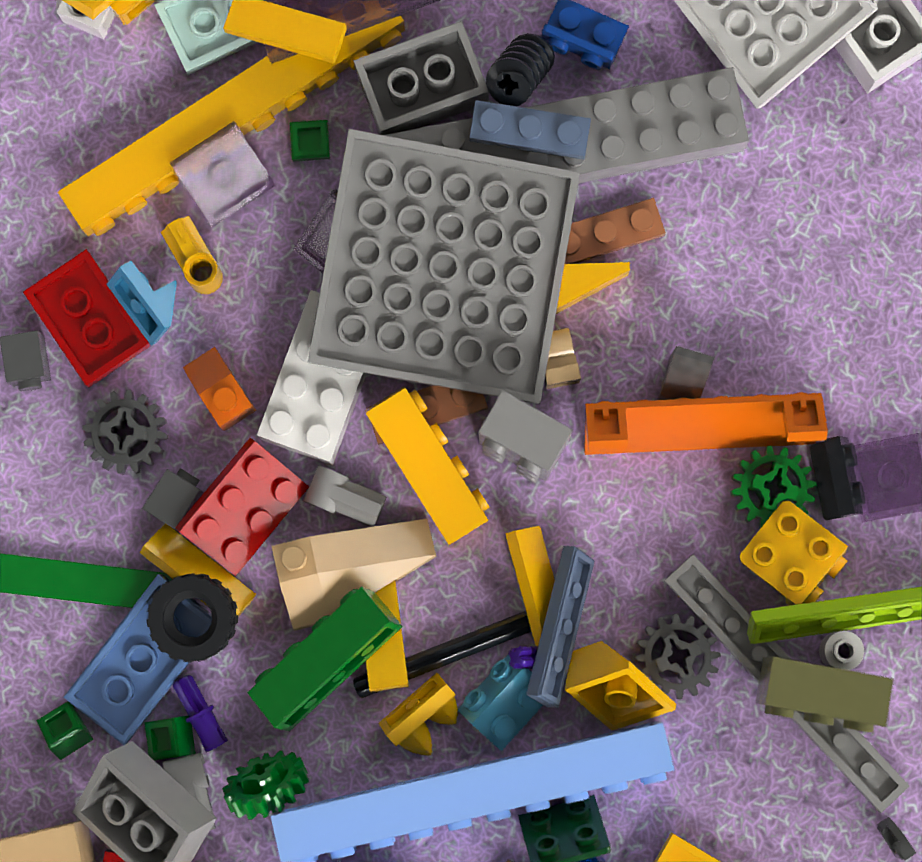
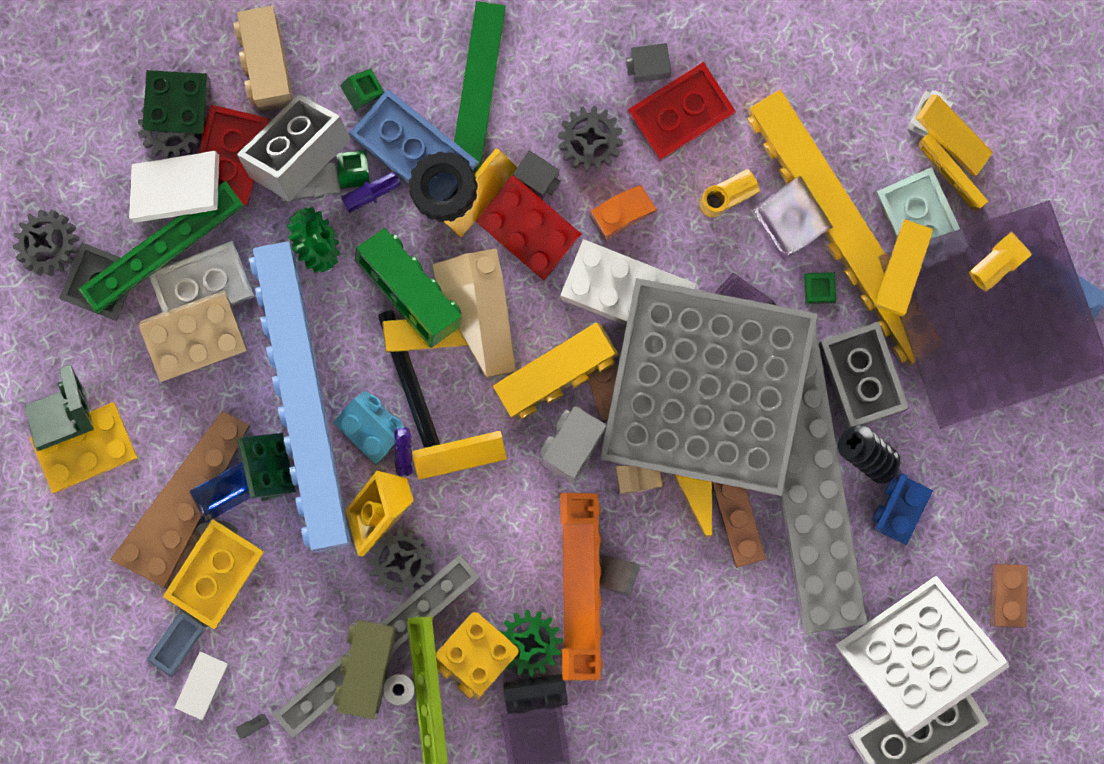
camera: 85 degrees right, 0 degrees up
(147, 308) = (685, 158): dark azure slope -> none
(337, 494) = (536, 302): light grey piece -> none
(407, 723) = (357, 350): yellow tile -> none
(530, 129) = (818, 458): sand blue plate -> none
(560, 627) = (426, 470): sand blue tile -> none

